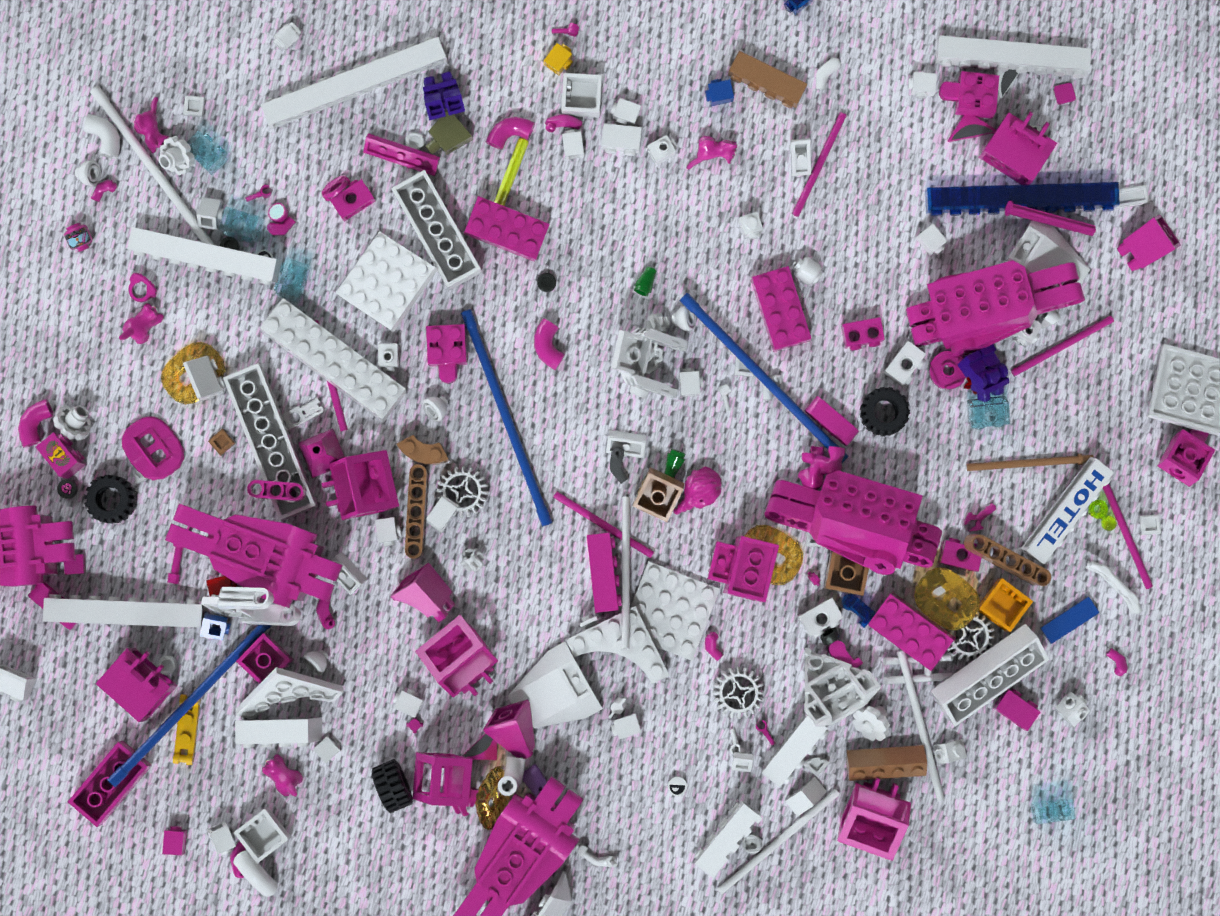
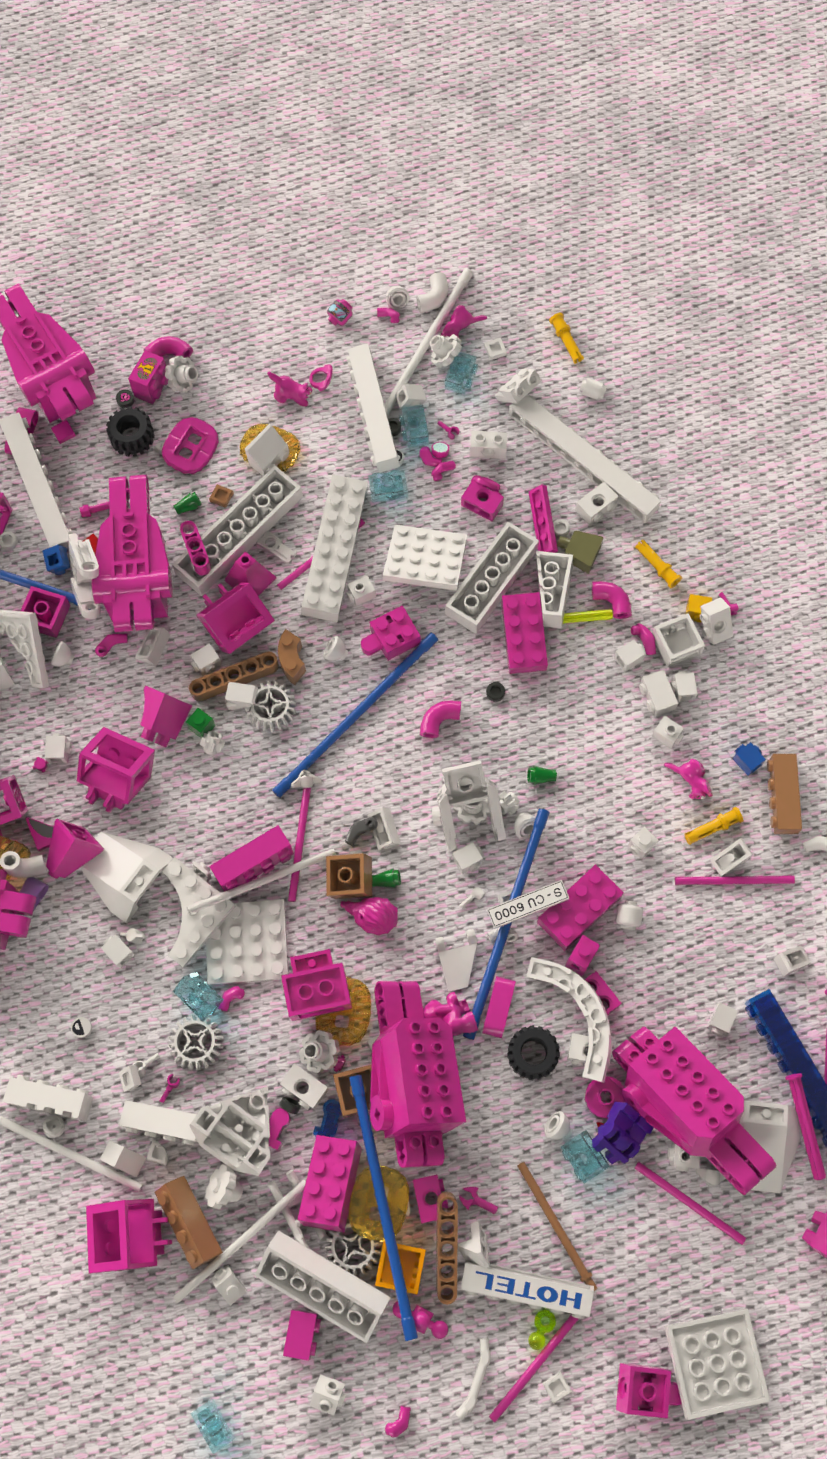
camera: 65 degrees right, 15 degrees down
(208, 31) = (563, 331): none -> yellow pin
(215, 477) = (188, 503): none -> green cone
(252, 106) = (518, 386): none -> white plate
(297, 165) = (488, 444): none -> white brick
(298, 219) = (445, 466): none -> dark pink arm
(402, 86) = (601, 494): none -> white brick
(442, 96) = (612, 528): dark purple hips -> none
(448, 562) = (200, 723): none -> green brick
(470, 177) = (554, 579): none -> white wedge
(505, 69) = (663, 569): none -> yellow pin
(548, 491) = (305, 780): none -> white piece
(582, 51) = (716, 621): none -> white brick
(700, 672) = (198, 995): none -> clear light blue brick
(760, 352) = (528, 904): none -> white tile
(764, 146) = (721, 822): none -> yellow pin
(775, 437) = (457, 962): none -> white flag
(797, 590) = (319, 1051): none -> white plant
(823, 328) = (582, 955): none -> dark pink torso
(870, 344) = (591, 1006): none -> white plate
(911, 154) = (791, 960): none -> white slope
(953, 422) = (558, 1126): none -> white brick
(1019, 536) = (476, 1248): none -> white slope
(1049, 608) = (423, 1321): none -> dark pink piece
(1050, 618) = (407, 1319): none -> blue piece
(1069, 620) = (419, 1349): blue tile -> none

